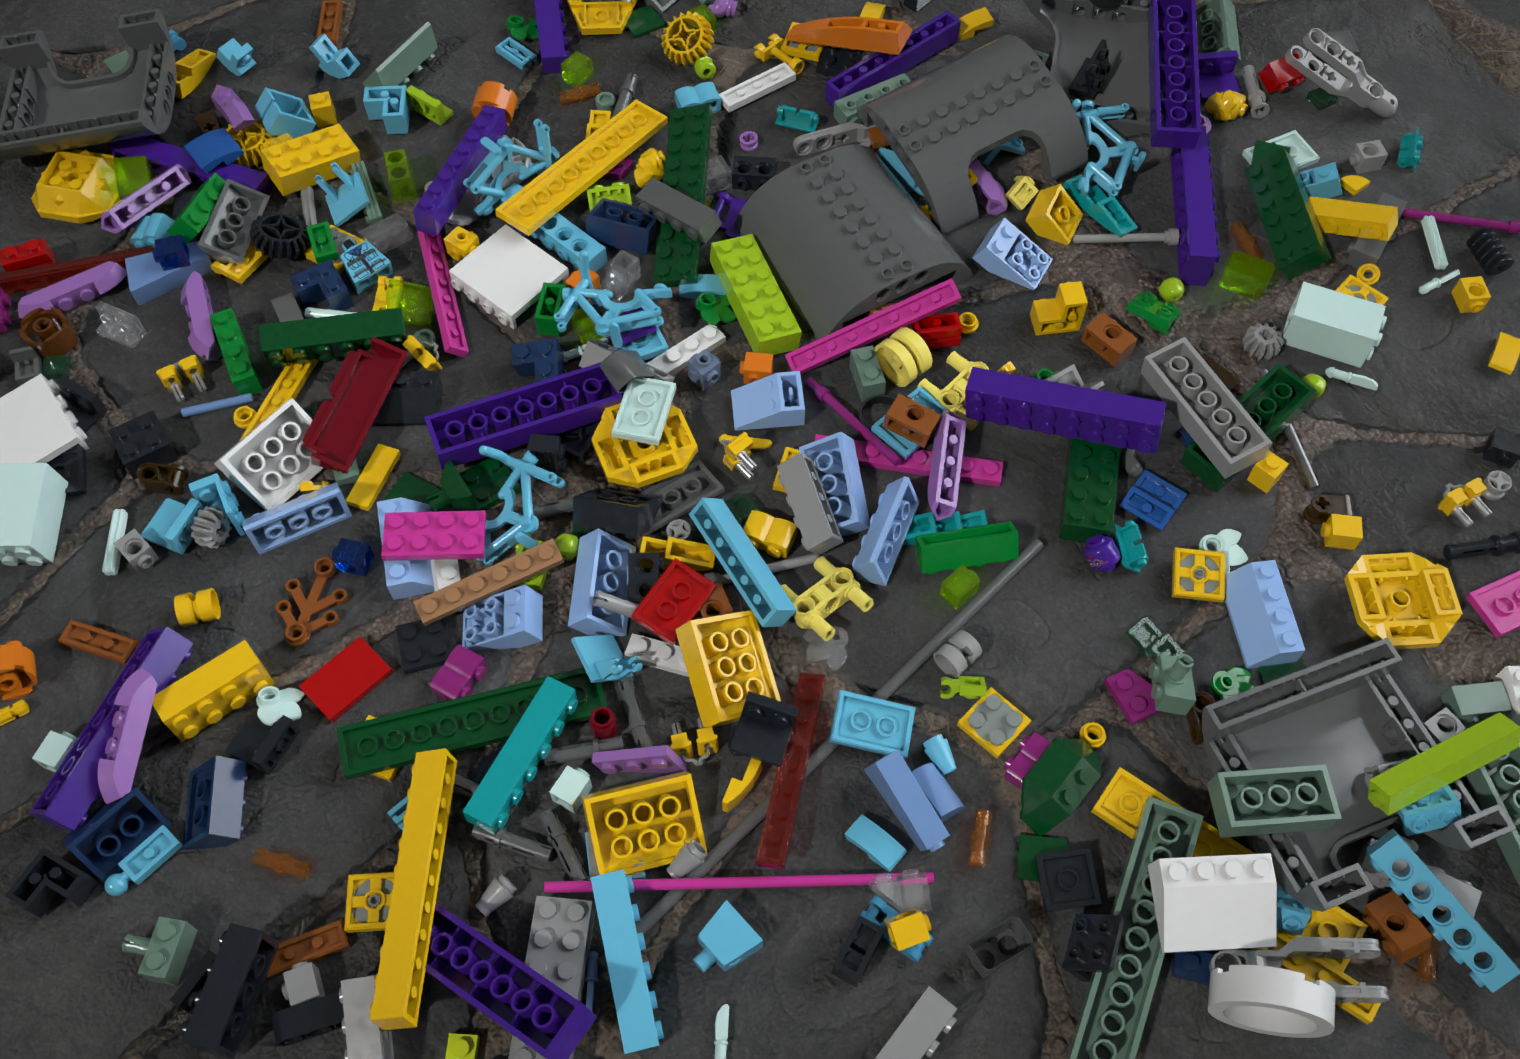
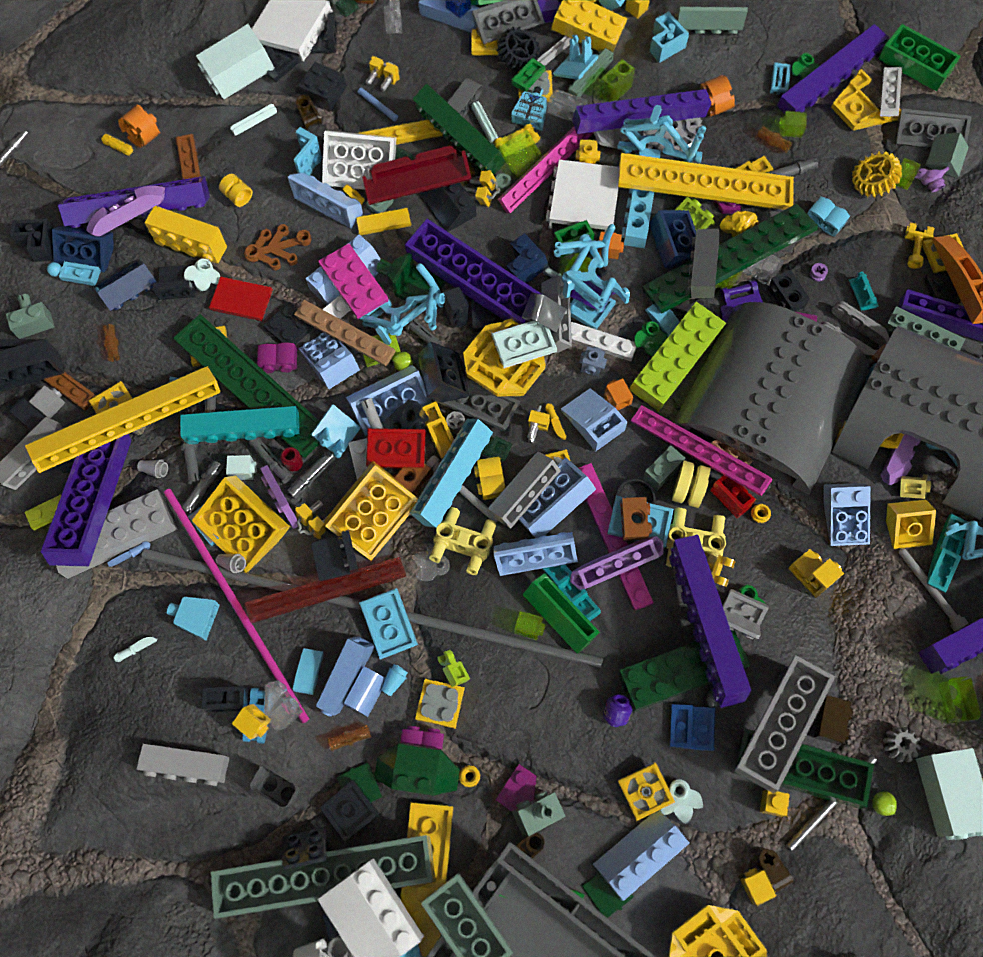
camera: 60 degrees right, 10 degrees up
(54, 750) = (109, 182): light aqua brick -> none
(136, 551) = (252, 134): light grey brick -> none
(172, 525) = (281, 141): medium azure bracket -> none
(198, 308) = (430, 52): medium lavender brick -> none
(211, 527) = (285, 159): light grey gear -> none
(236, 352) = (428, 72): green brick -> none
(242, 413) = (377, 121): yellow plate -> none
(322, 284) = (500, 99): dark blue brick -> none
(353, 557) = (319, 246): clear blue brick -> none
(411, 488) = (387, 247): dark green piece -> none
(428, 106) = (689, 59): lime bracket -> none
(605, 101) = (781, 159): sand green tile -> none
(621, 275) = (630, 263): clear slope -> none
(625, 963) = (145, 564): medium azure brick -> none
(644, 21) = (877, 137): dark green piece -> none
(705, 68) = (862, 203): lime piece -> none
(739, 789) = (295, 566): yellow slope -> none
(757, 87) = (873, 247): white plate -> none
(824, 395) = (627, 450): magenta bar -> none
(959, 652) = (467, 648): light grey wheel -> none
(1109, 339) = (811, 632): dark orange brick -> none
(1132, 556) = (633, 731): teal hinge -> none
(1151, 640) = (571, 785): slope -> none
(1159, 314) = (868, 644): green plate -> none
(1171, 289) = (902, 648): lime piece -> none
(1235, 681) = (568, 865): green plate -> none
(1355, 379) = (917, 829): light aqua piece -> none

